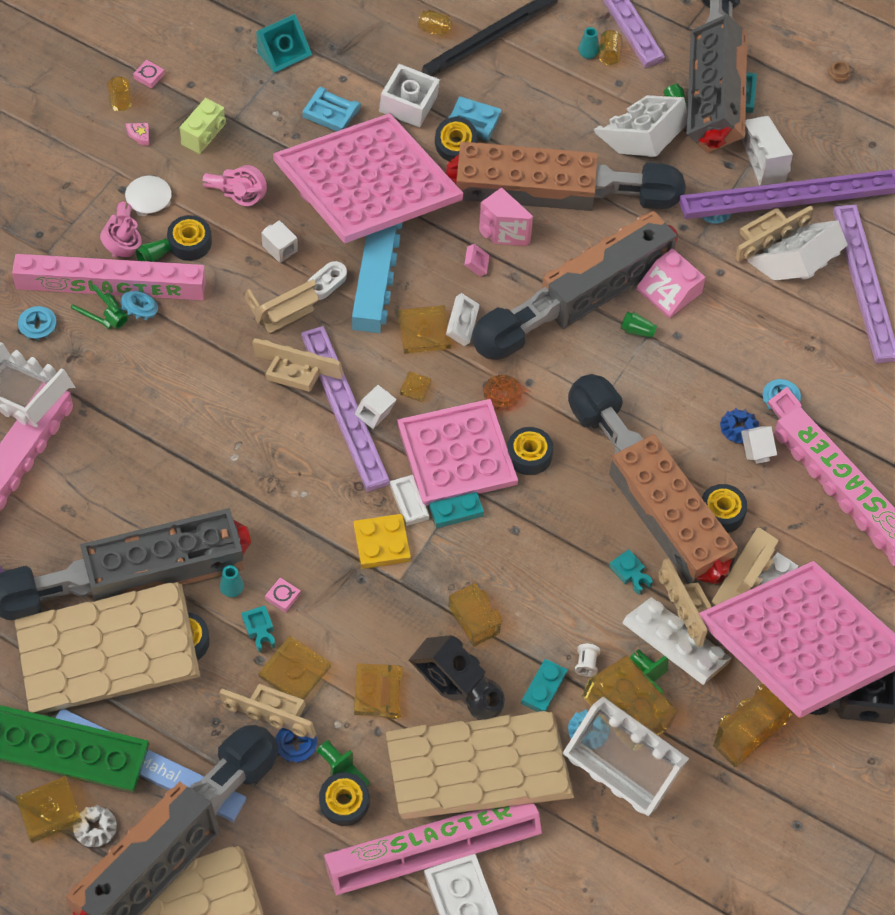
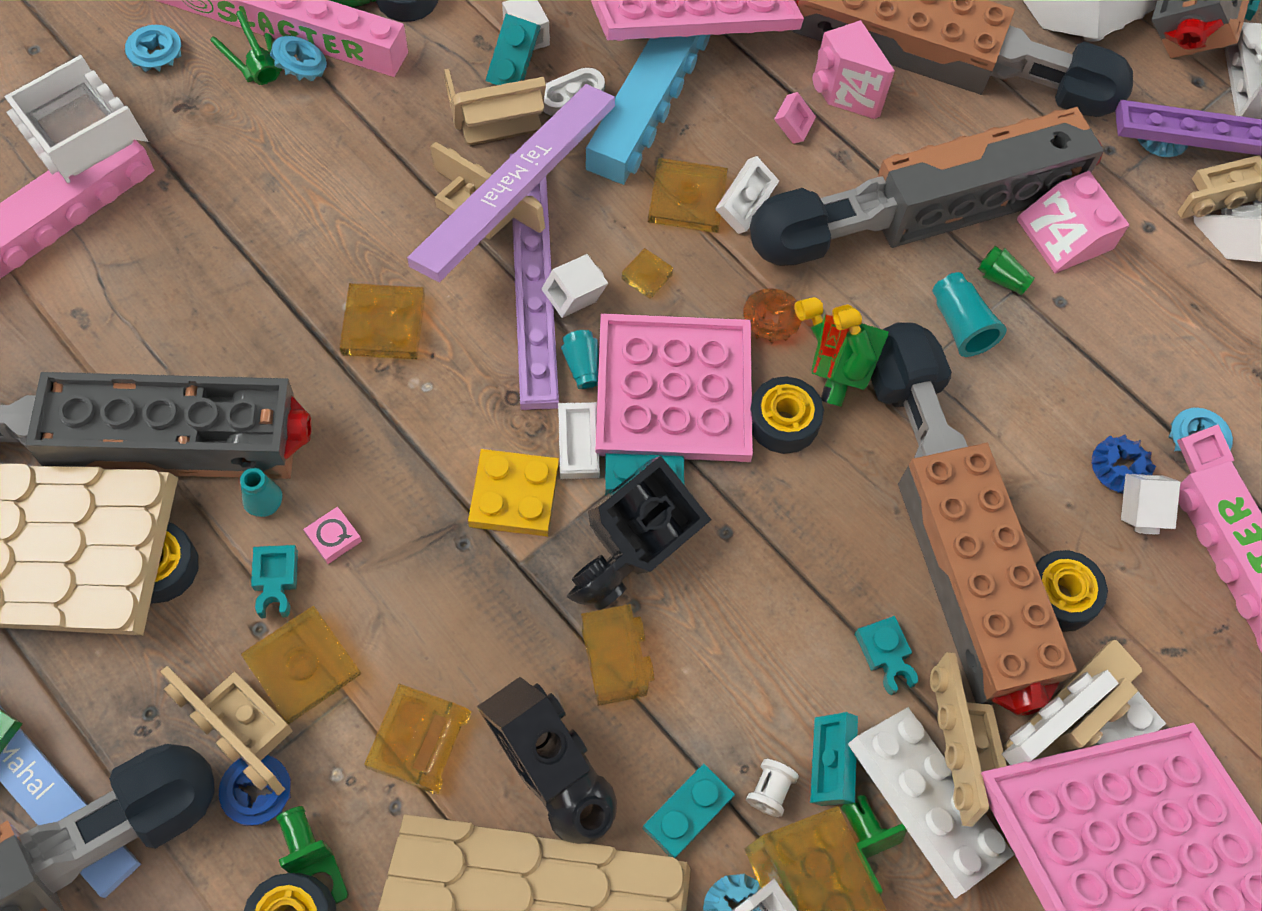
camera: 15 degrees right, 5 degrees up
(261, 461) = (382, 321): none -> clear yellow plate
(280, 265) = (513, 50): none -> teal plate
(317, 351) = (510, 183): none -> lavender tile
(394, 449) = (582, 357): none -> teal cone
(465, 540) = (640, 528): none -> black brick
(553, 401) = (844, 350): none -> green torso
(617, 634) = (833, 760): none -> teal plate
(622, 360) = (967, 315): none -> teal plant
(735, 574) = (1058, 716): none -> white plate

